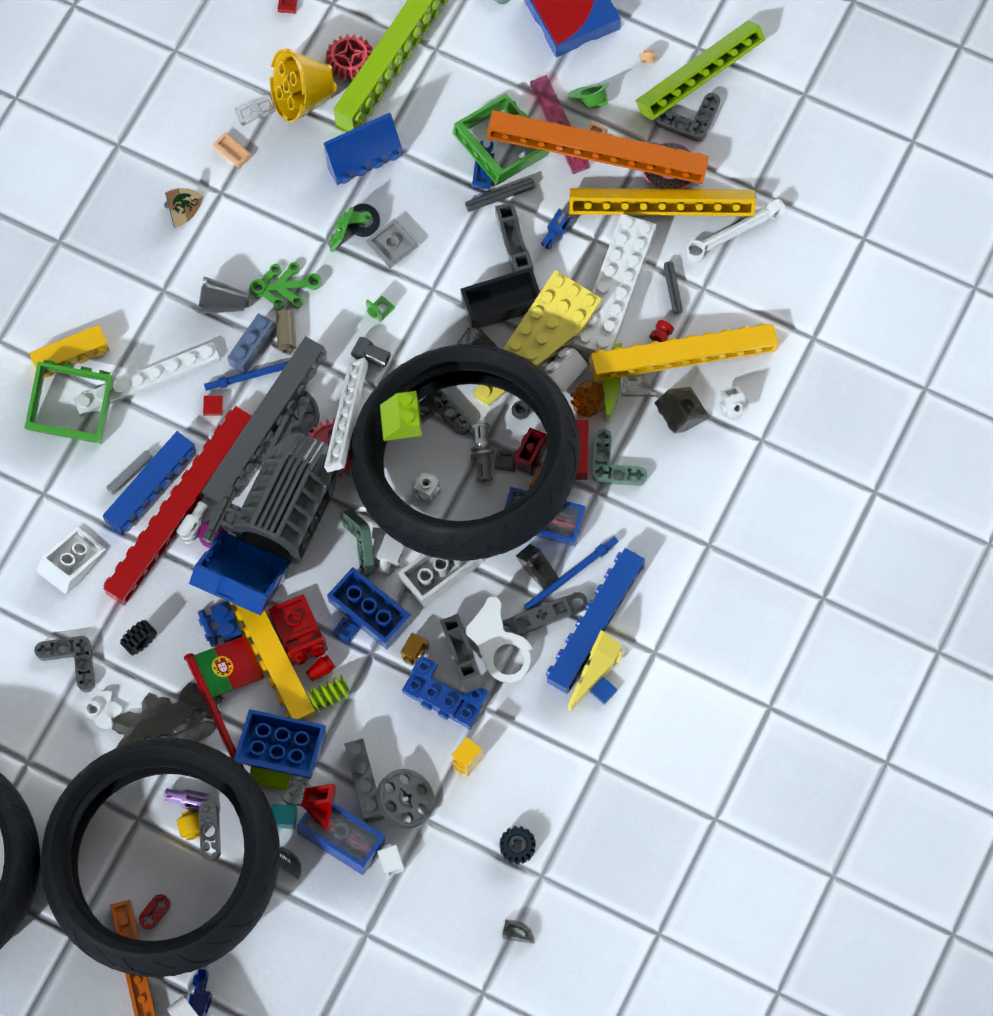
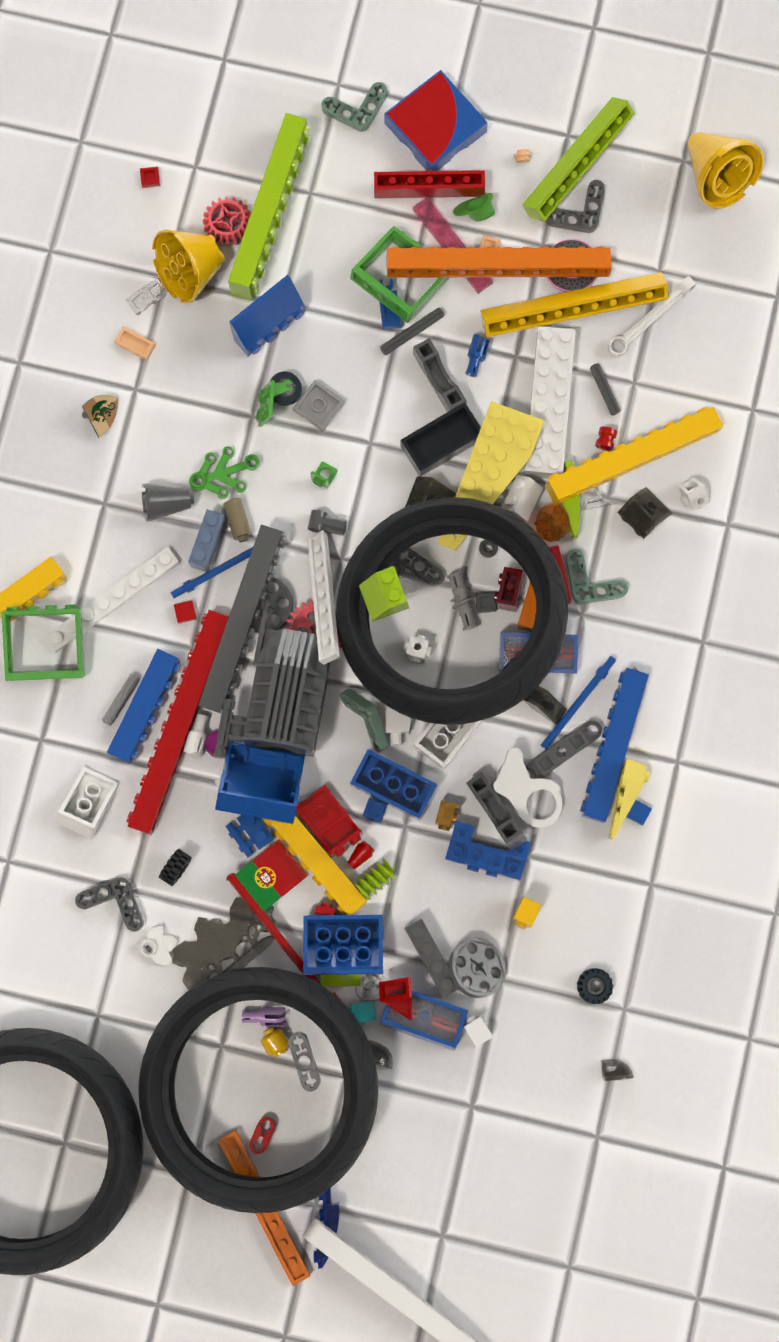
camera: 15 degrees left, 10 degrees up
(272, 709) = (325, 909): none -> red plate
(550, 63) = (429, 184): none -> red brick
(838, 107) = (723, 167): none -> yellow cone

